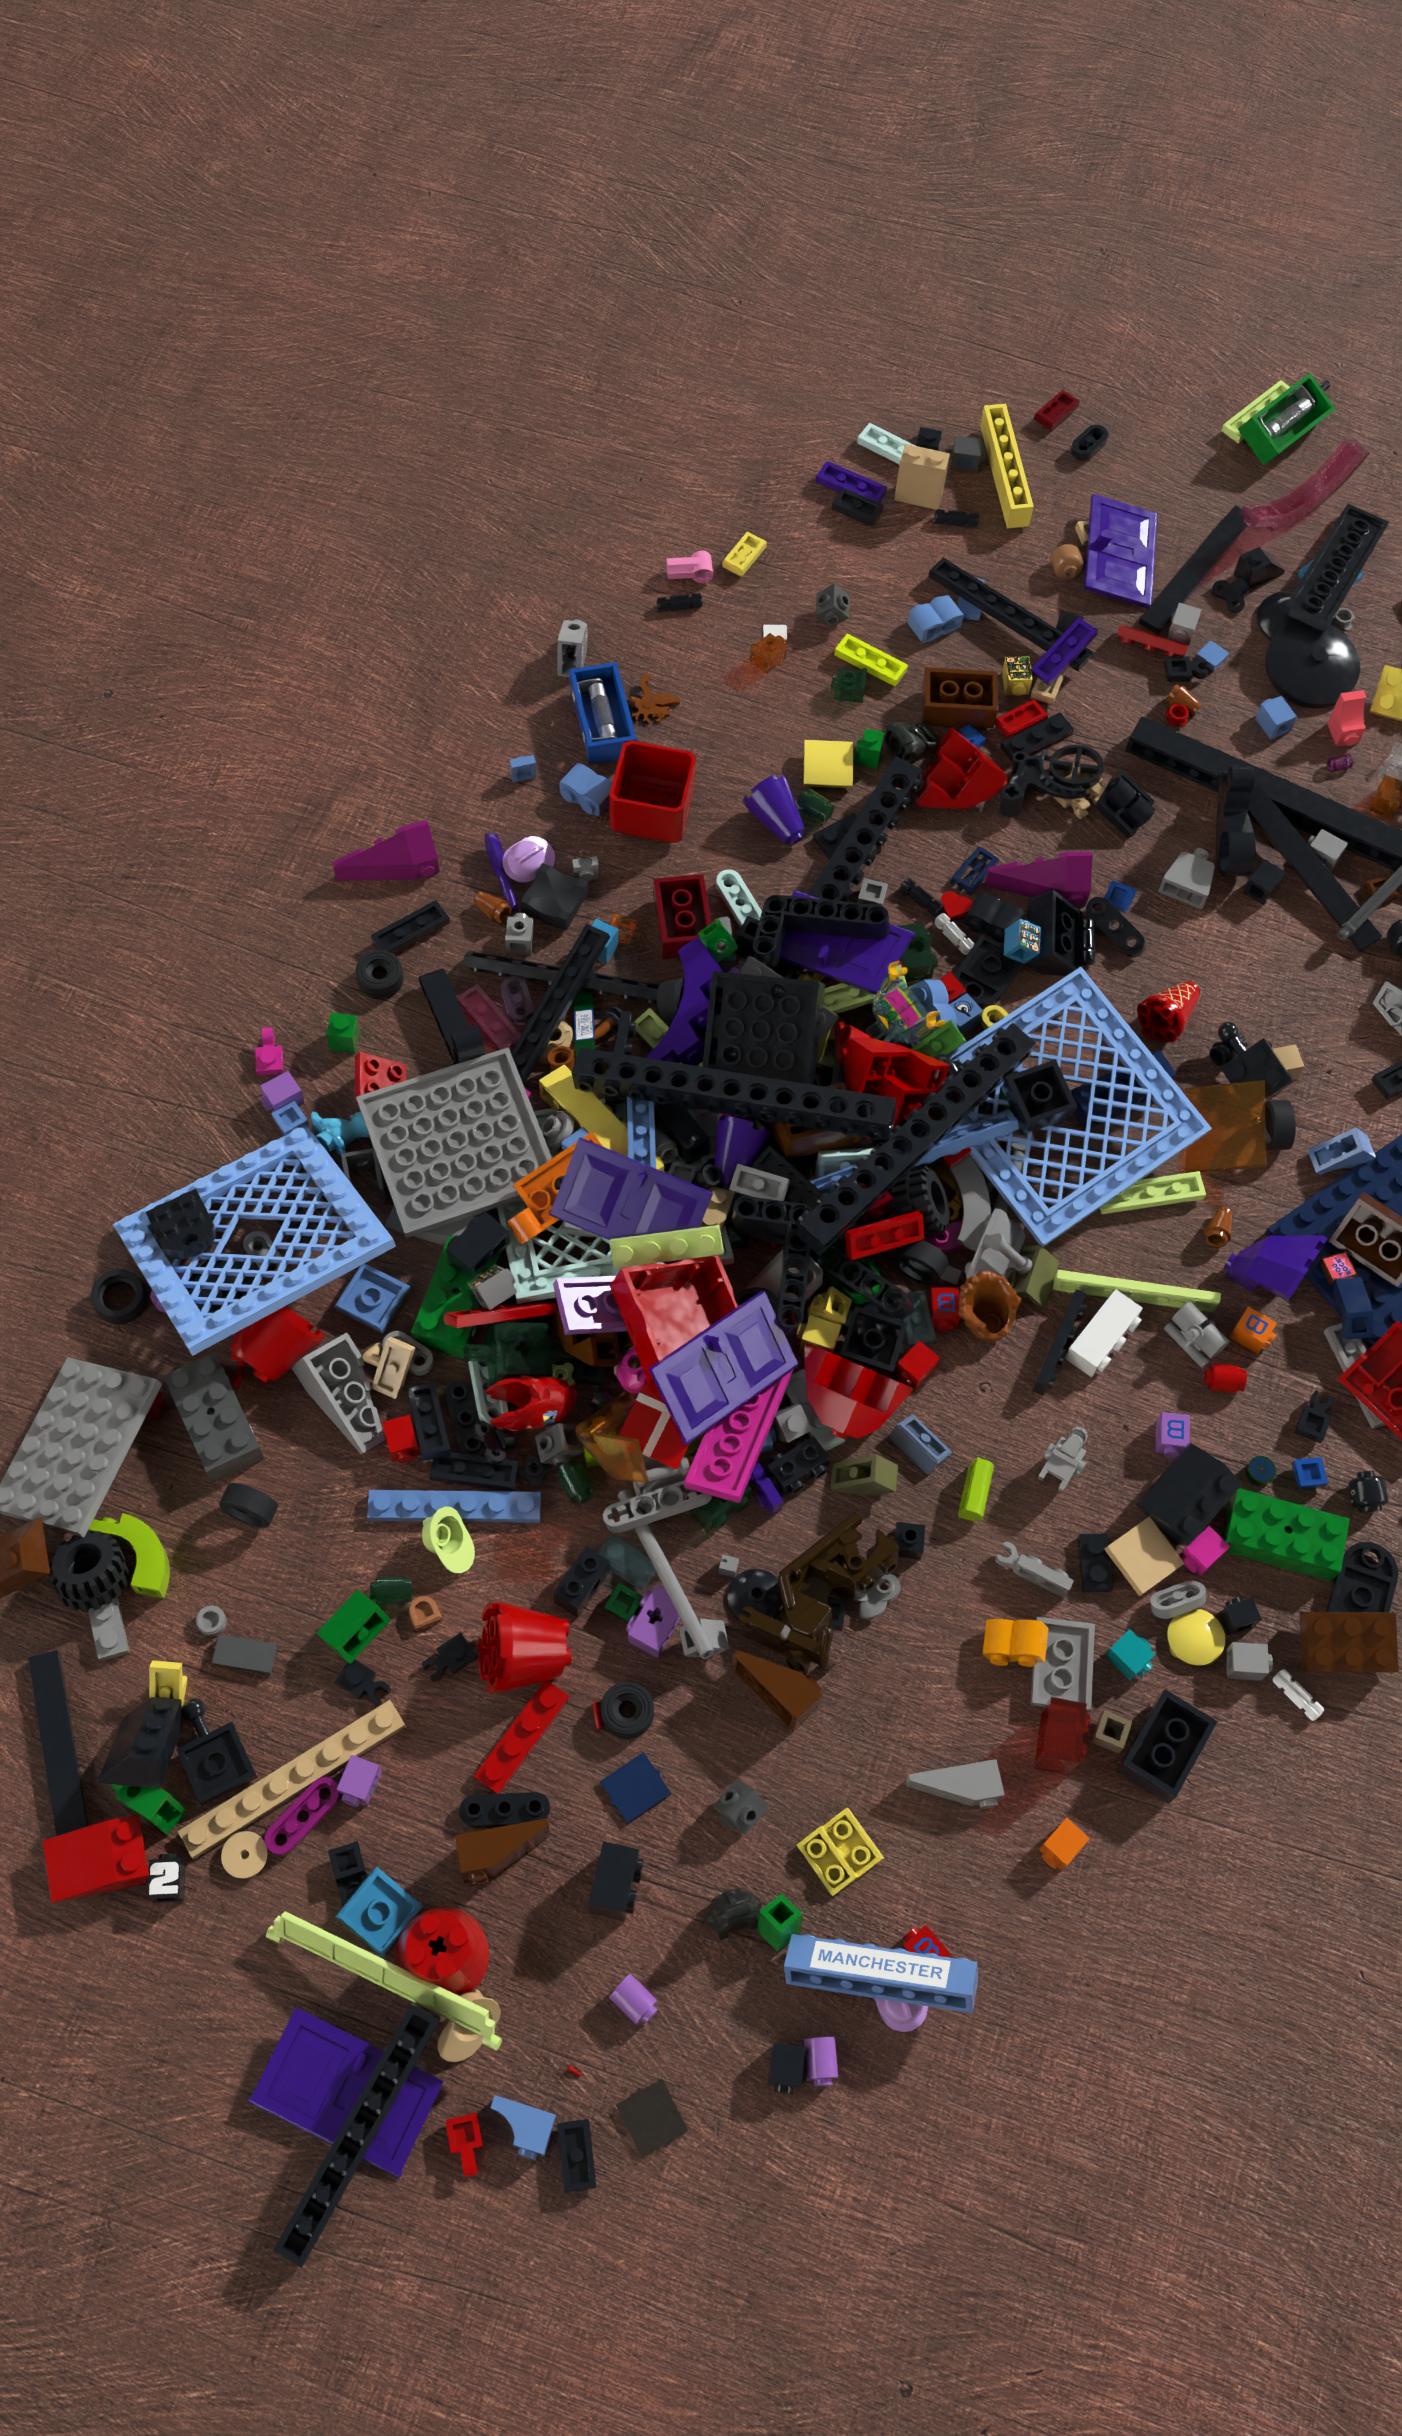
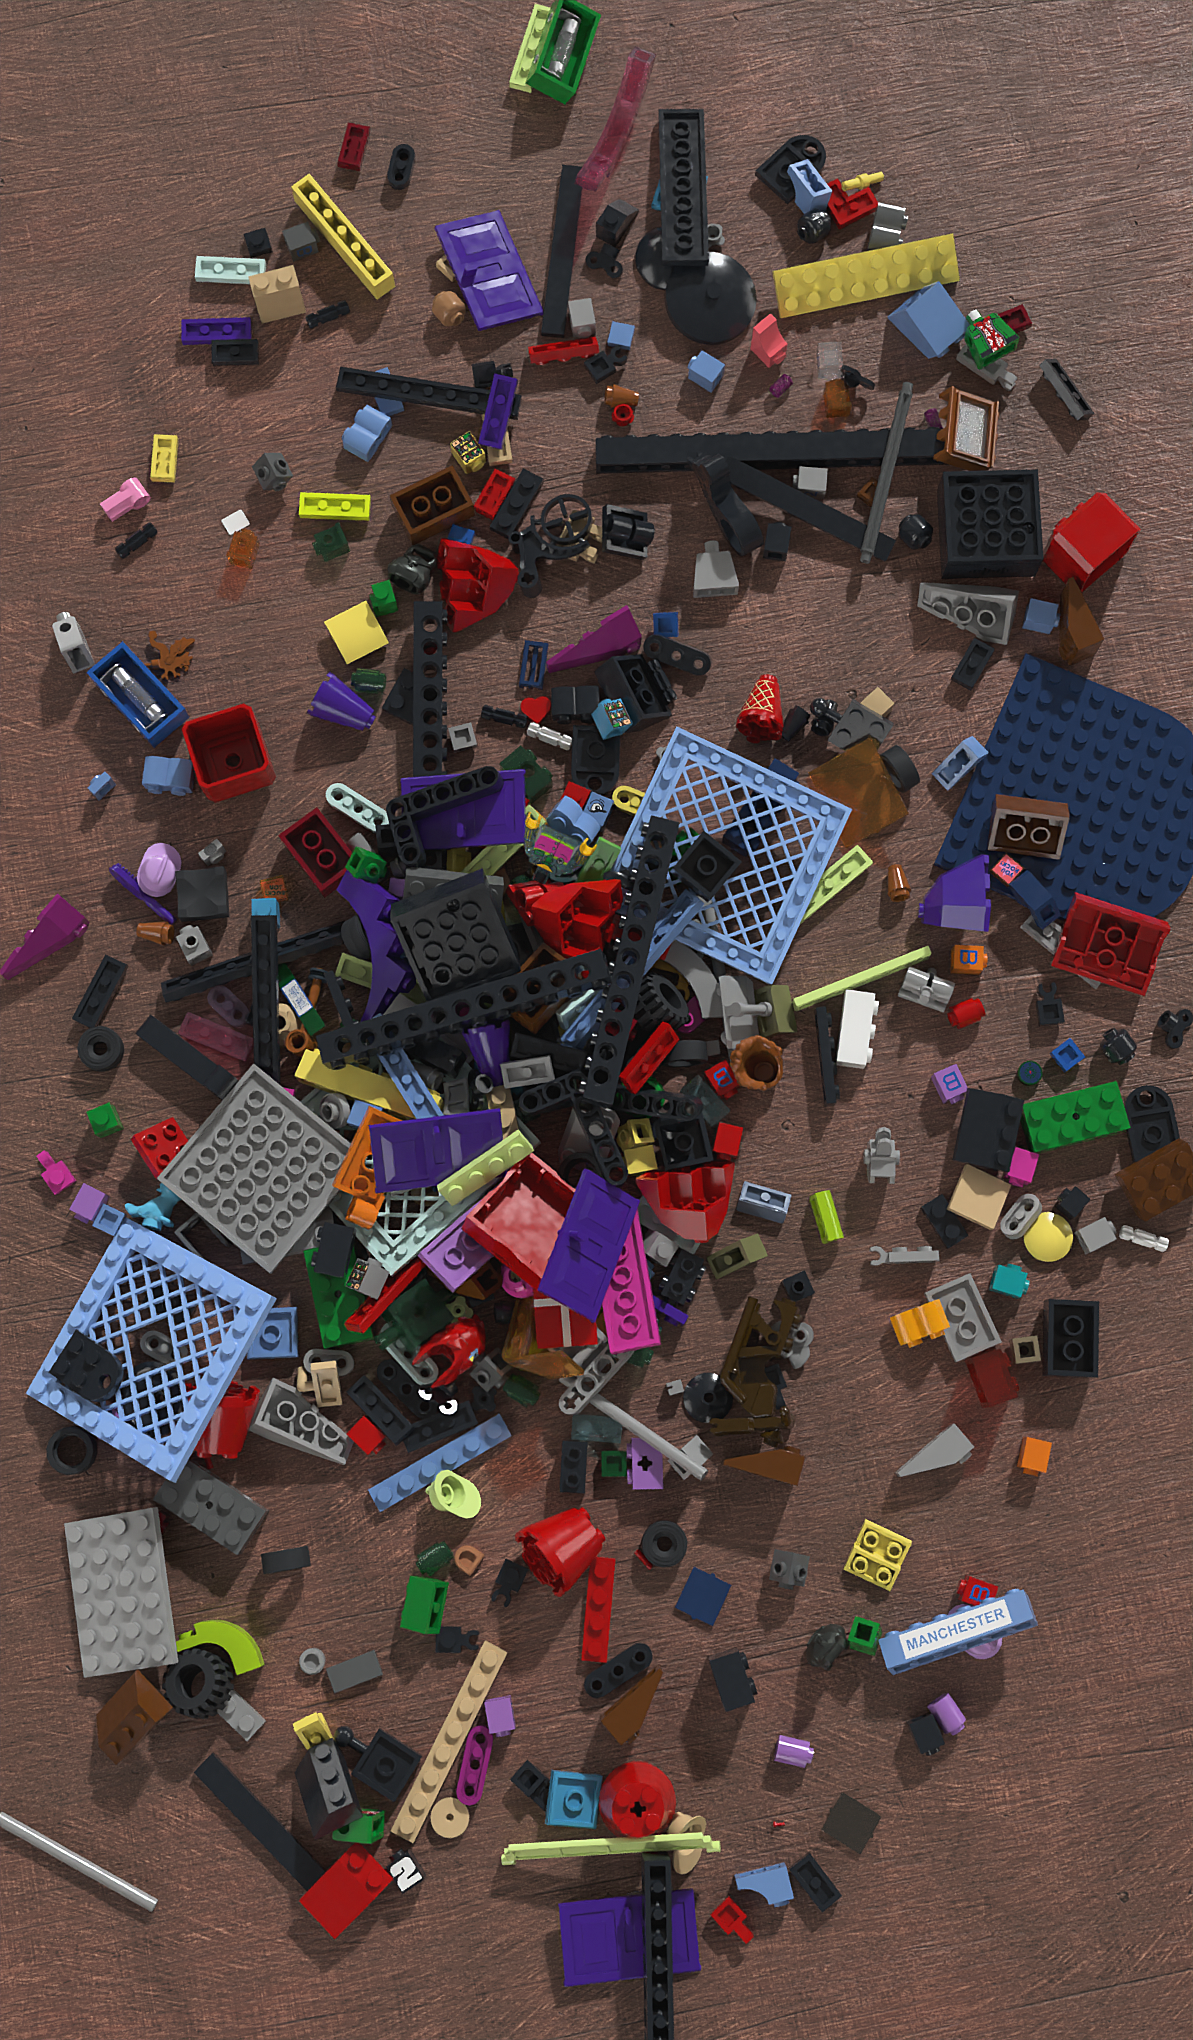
camera: 25 degrees left, 15 degrees up
(1195, 1038) = (794, 722): none -> black cone

